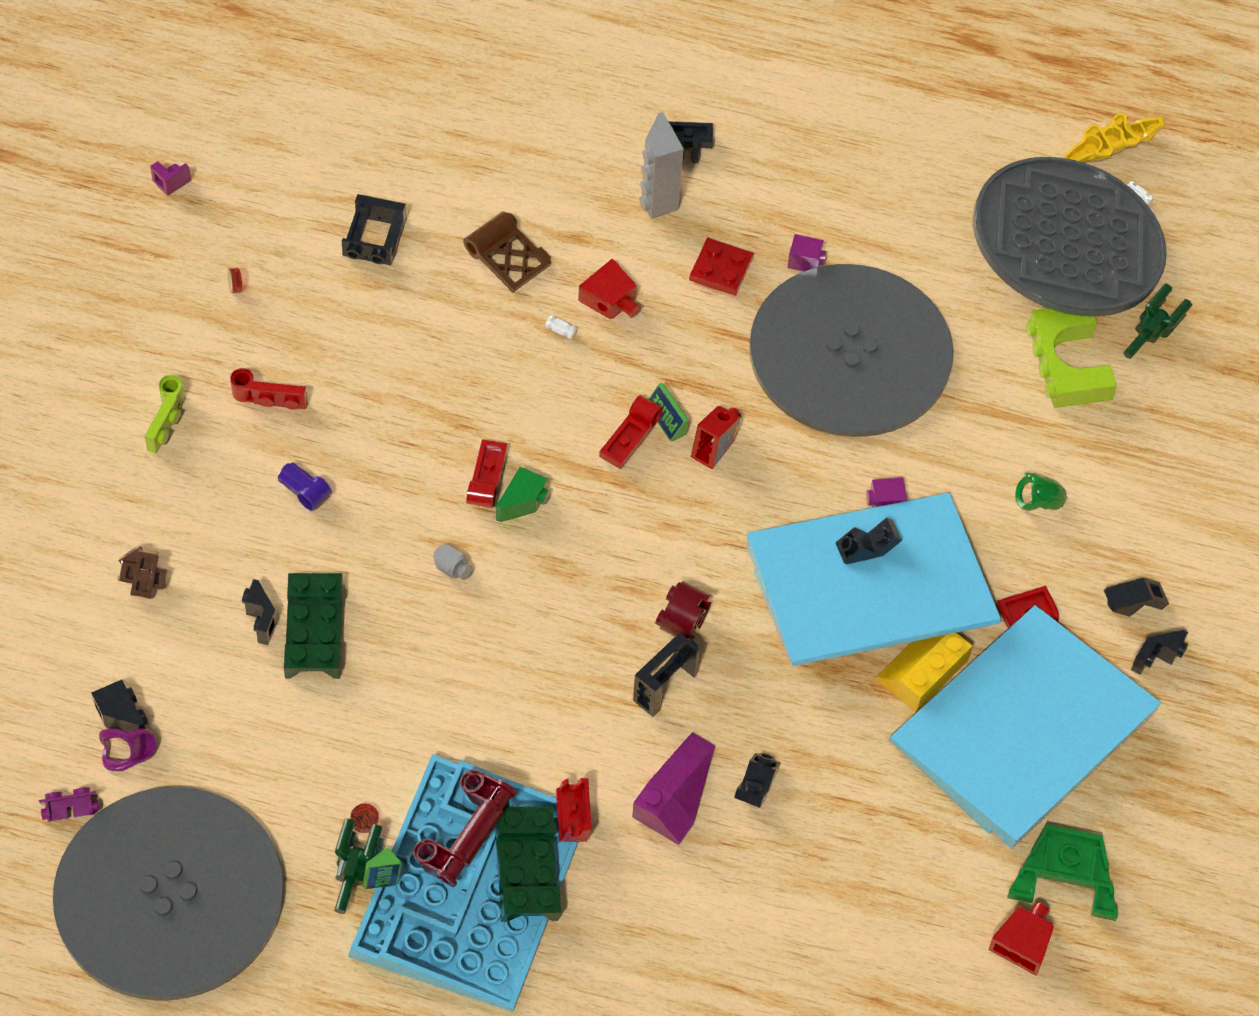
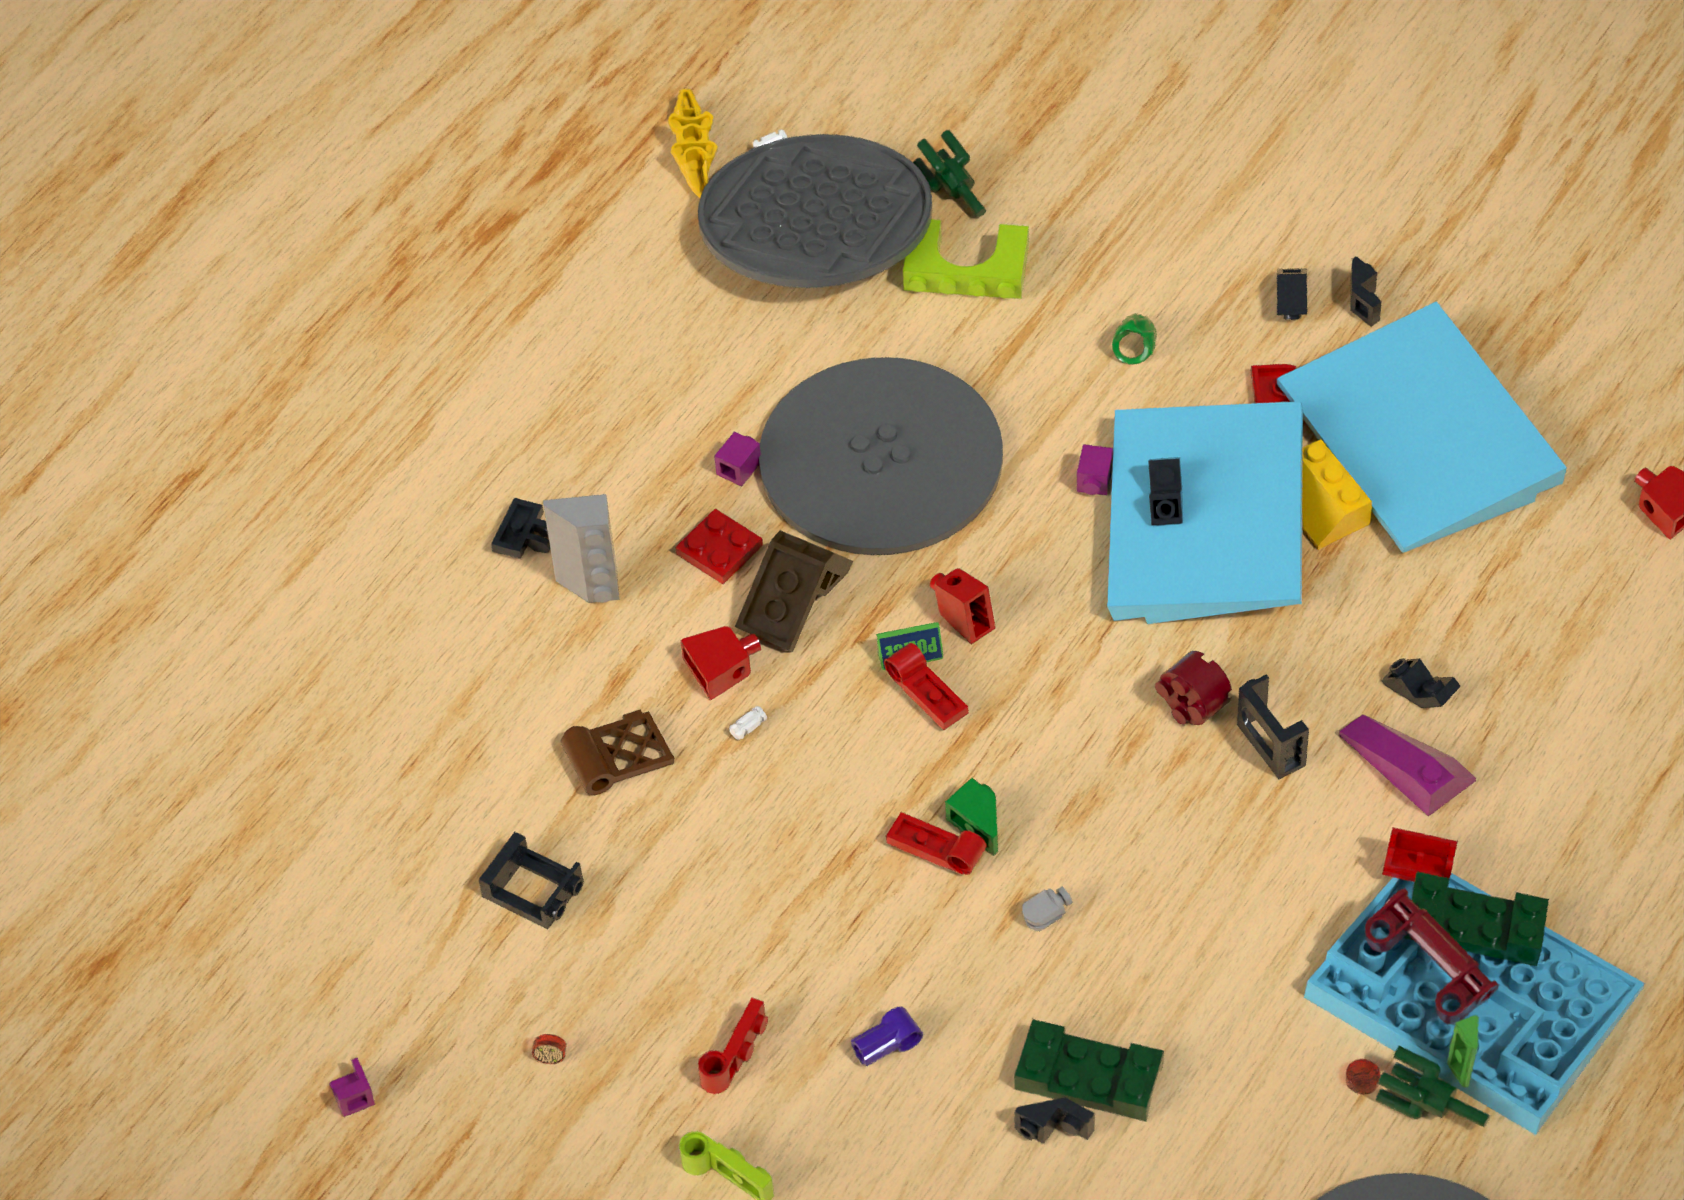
camera: 65 degrees left, 5 degrees down
(700, 311) = (787, 588): none -> dark brown bracket
(1071, 859) = (1588, 436): green wing -> none

